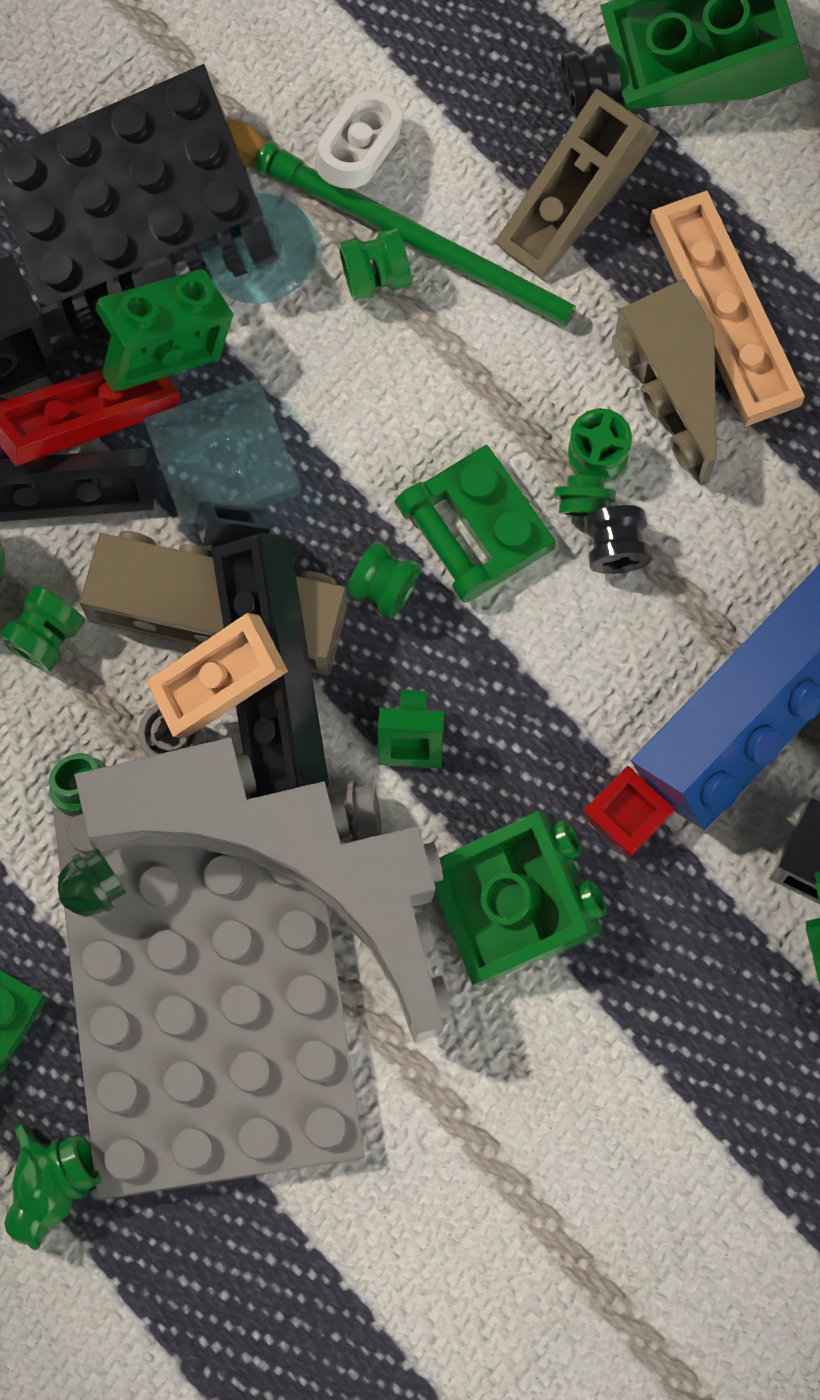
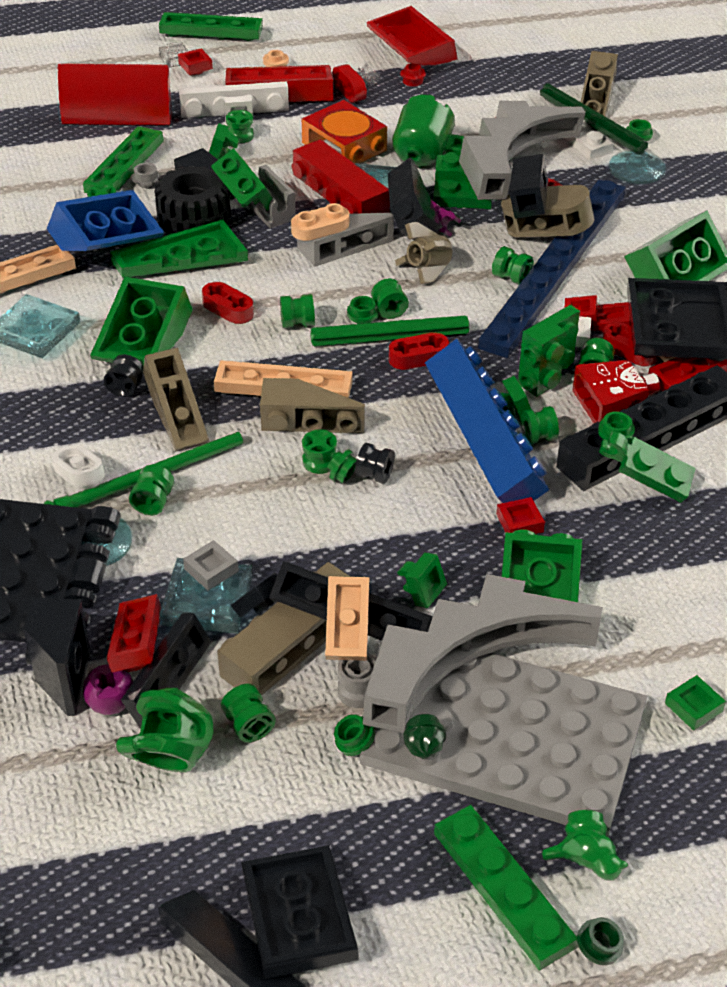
camera: 65 degrees left, 30 degrees down
(163, 329) = (123, 565): green bracket -> none
(248, 433) = (211, 565): none -> light grey plate
(383, 580) = (333, 551): green wheel -> none
(387, 1232) = (695, 702): none -> green plate
(491, 512) = (323, 513): green plate -> none

